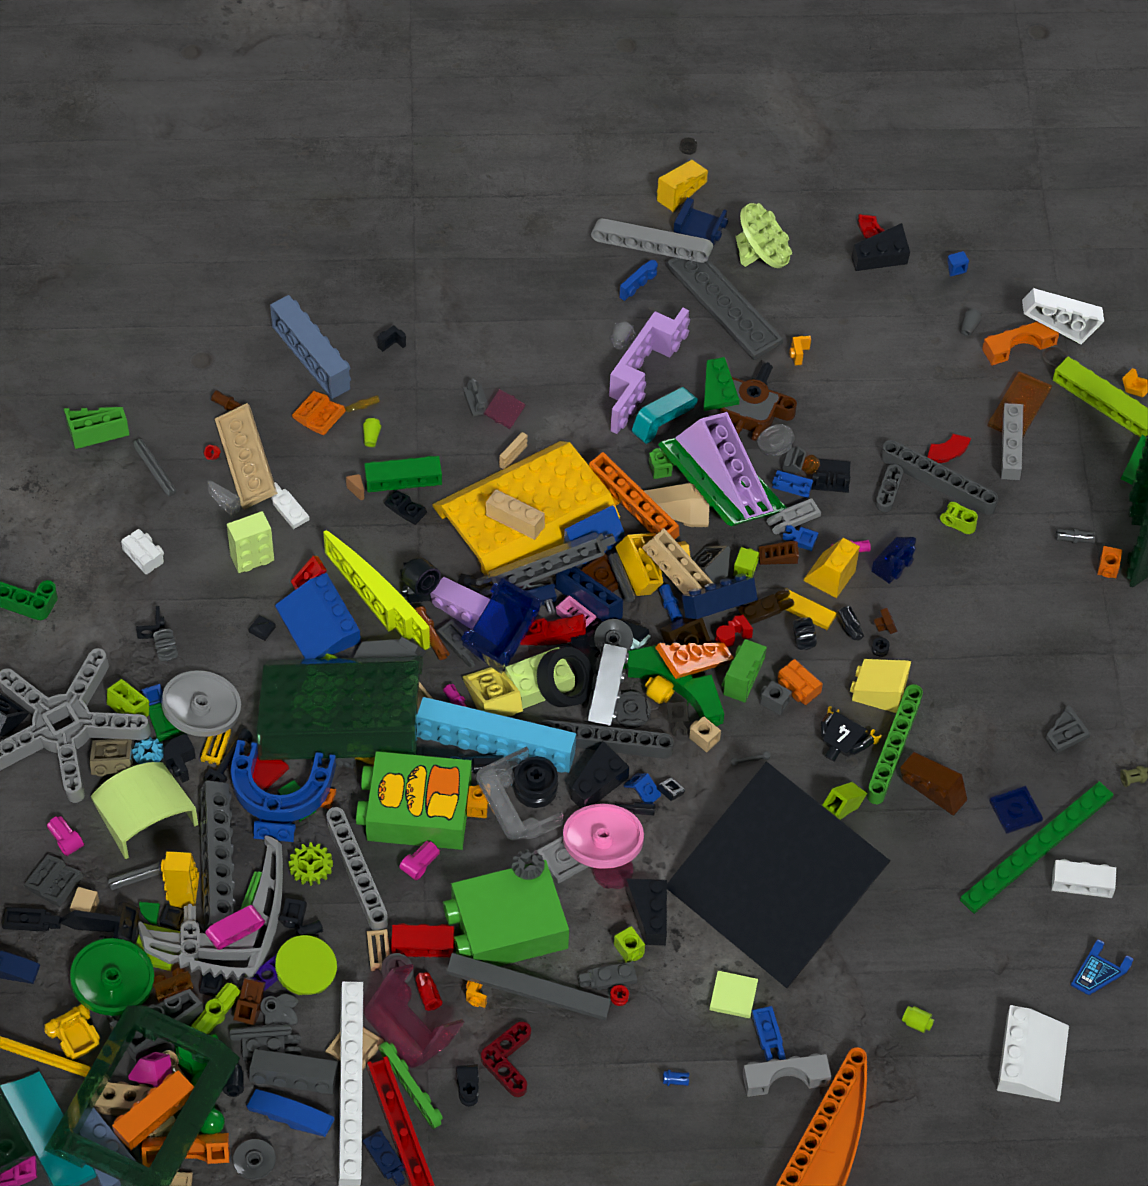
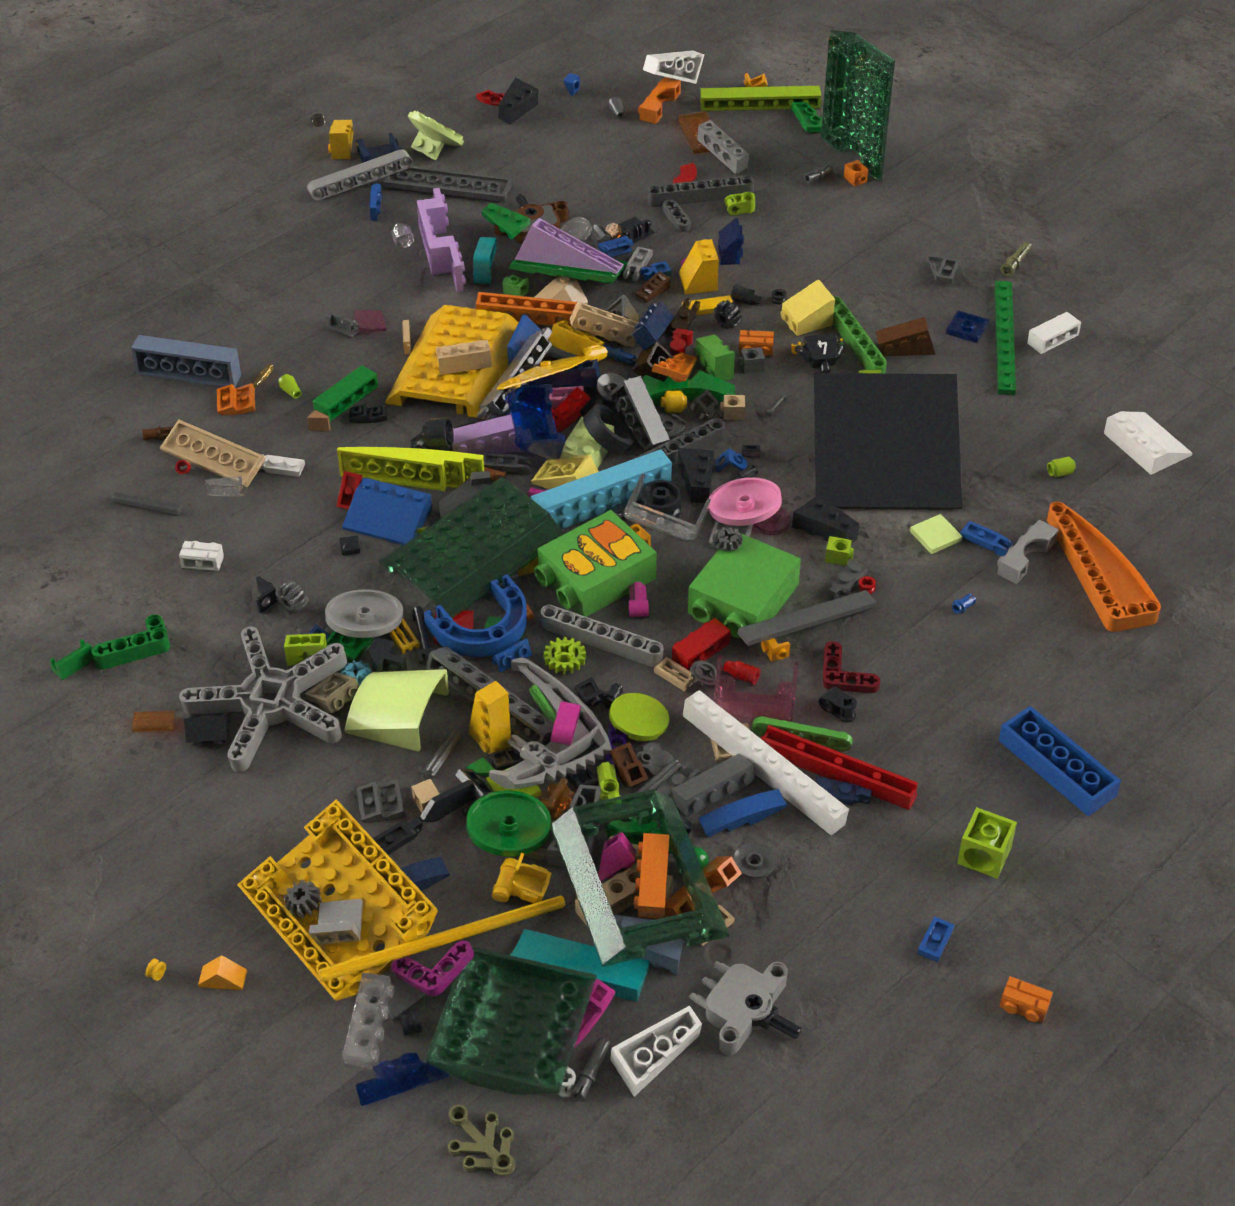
camera: 40 degrees left, 10 degrees down
(67, 840) = (362, 767): dark pink piece -> none
(96, 425) = (71, 504): bright green wedge -> none
(250, 542) = (286, 492): yellowish green brick -> none
(390, 337) = (238, 325): black bracket -> none
(567, 582) = (547, 368): none -> yellow wing
(746, 562) = (640, 302): lime brick -> none
(798, 345) = (528, 179): light orange bracket -> none
(885, 622) = (767, 280): reddish brown tile -> none
(1098, 972) = (1124, 375): flag -> none

